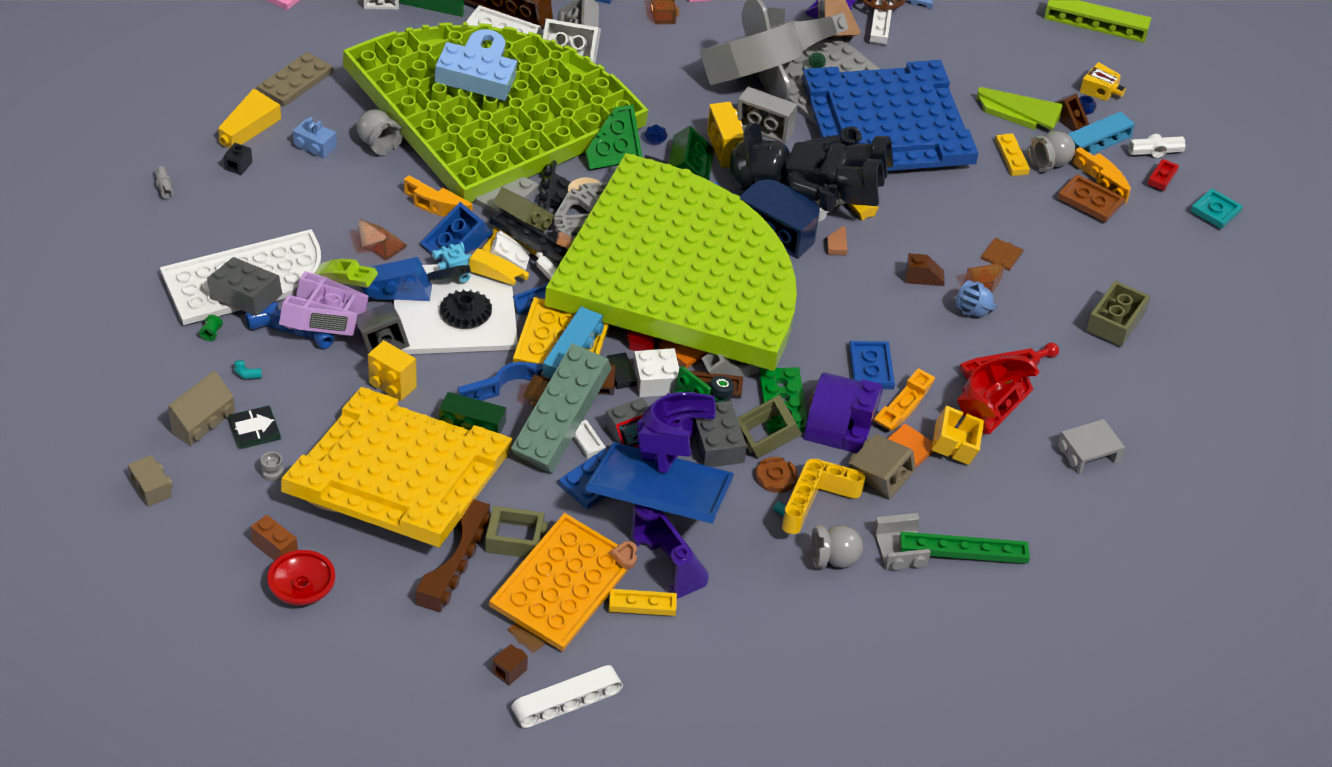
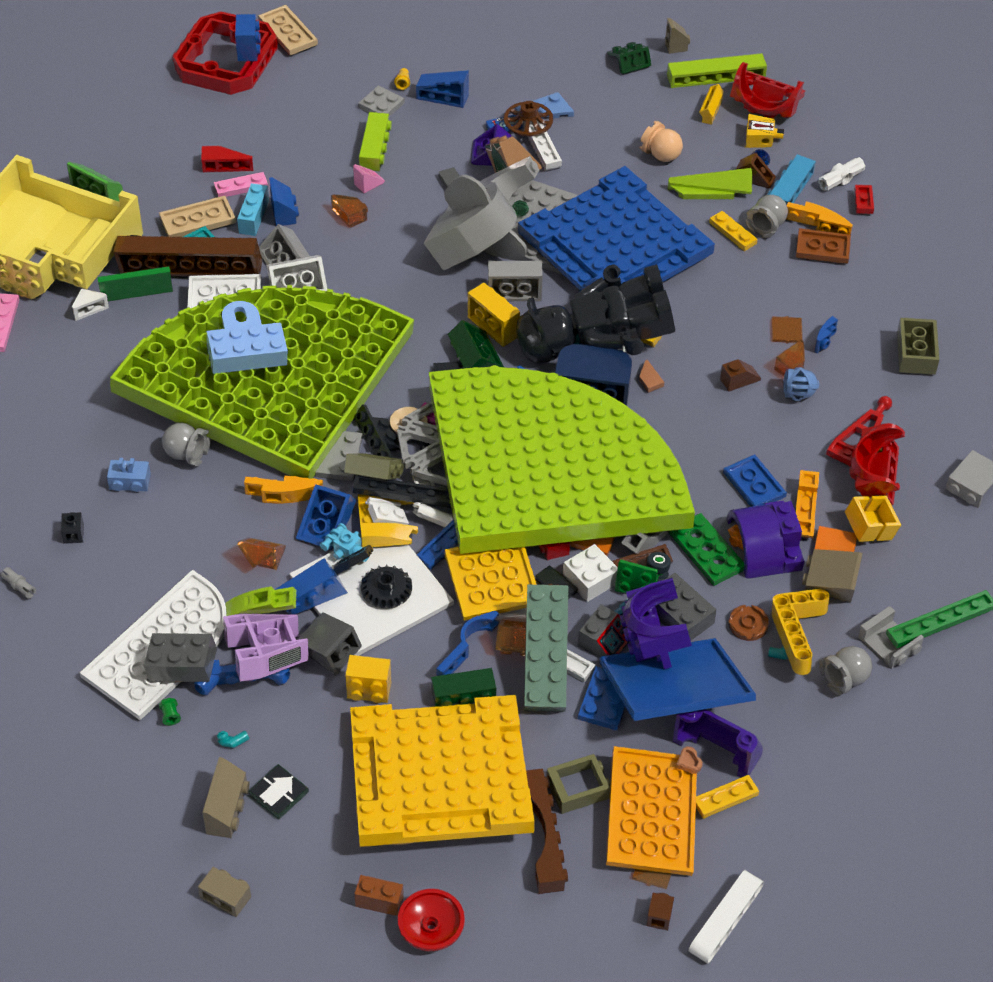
camera: 25 degrees left, 5 degrees up
(249, 119) = (54, 481): yellow slope -> none
(272, 466) = (324, 823): light grey wheel -> none
(295, 79) = (64, 421): dark tan plate -> none
(564, 240) = (432, 481): nougat tile -> none
(580, 331) = (512, 581): dark azure brick -> none
(614, 139) = (404, 361): green plate -> none
(655, 134) = (428, 339): clear blue plate -> none
(761, 414) = (720, 559): olive window -> none
(993, 55) = (661, 142): none -> light nougat tile
(1034, 268) = (826, 331): none -> blue slope
(1071, 44) = (711, 104): none -> yellow piece
(1131, 54) = (767, 95): none -> red piece
(1216, 208) = (924, 213): teal plate -> none

